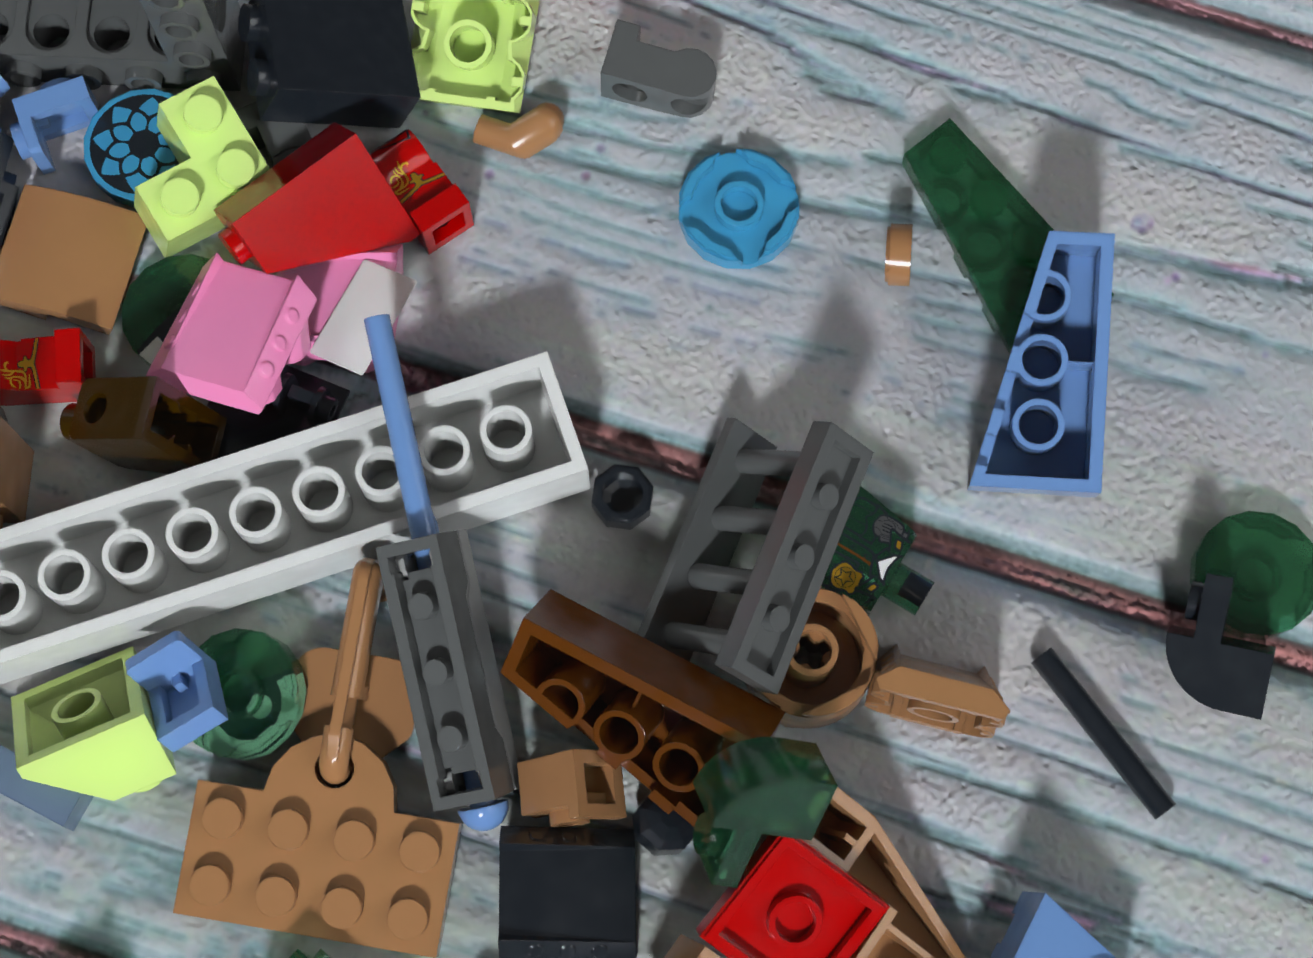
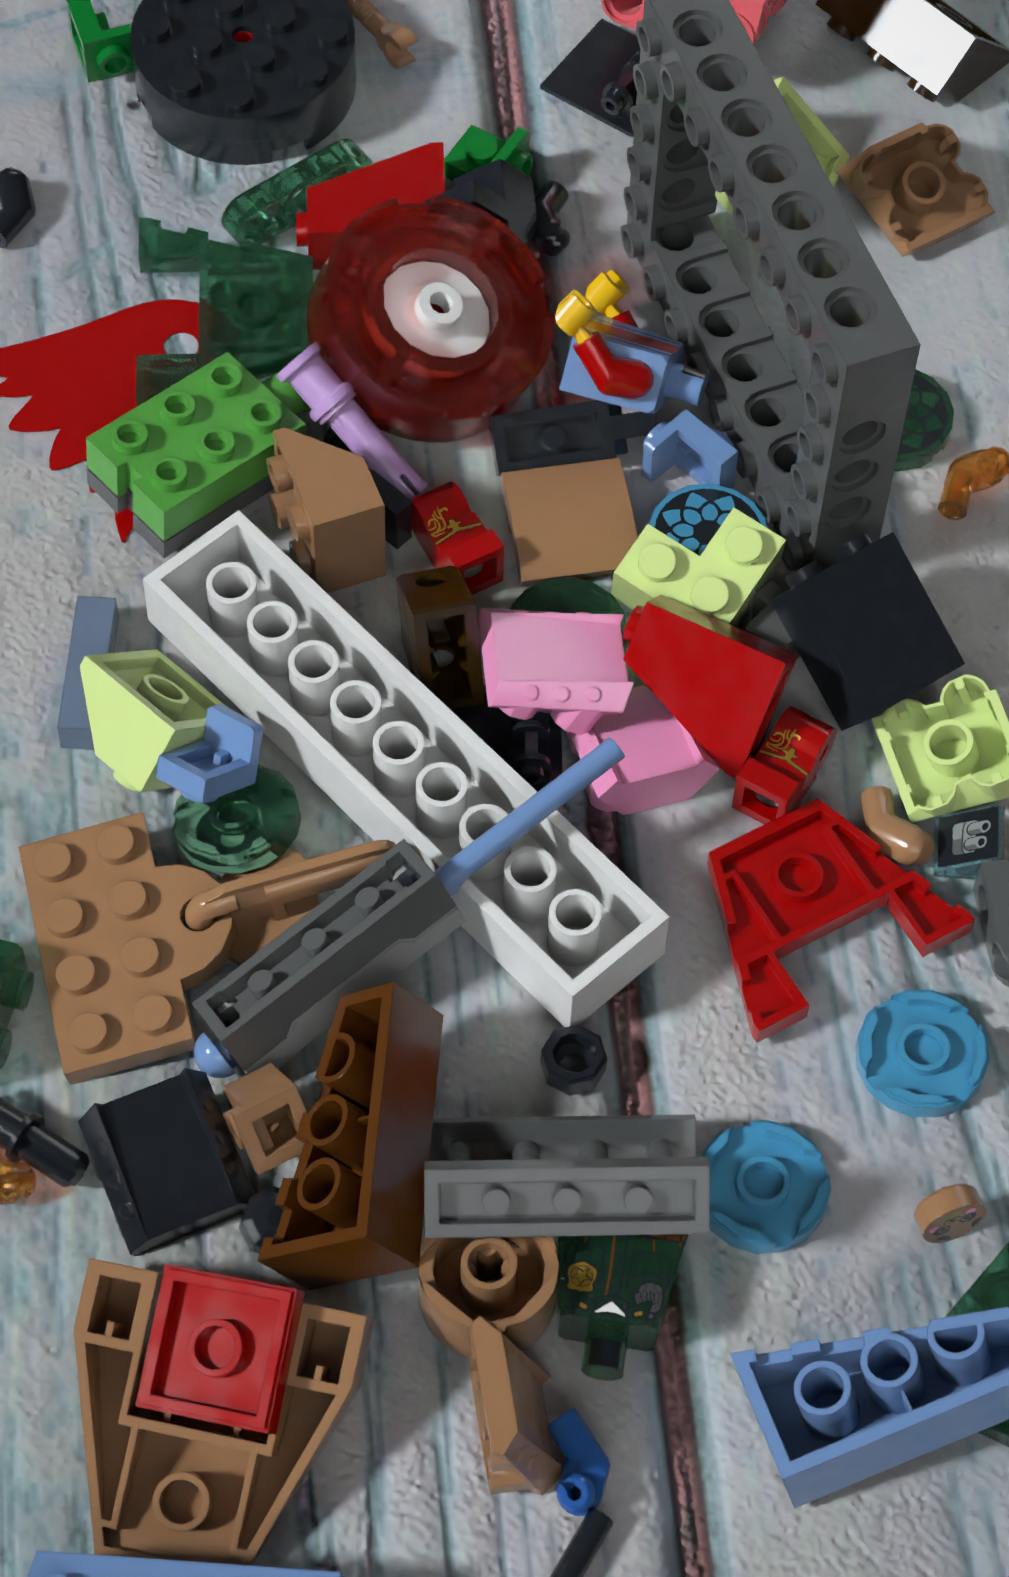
camera: 65 degrees right, 15 degrees down
(370, 293) = (644, 761): white sticker -> none
(540, 237) = (801, 883): none -> red wing
(564, 74) = (967, 840): none -> slope
(757, 790) = (320, 1246): clear green brick -> none
(802, 382) = (765, 1187): none -> dark azure tile
(995, 650) = (585, 1464): none -> blue arm

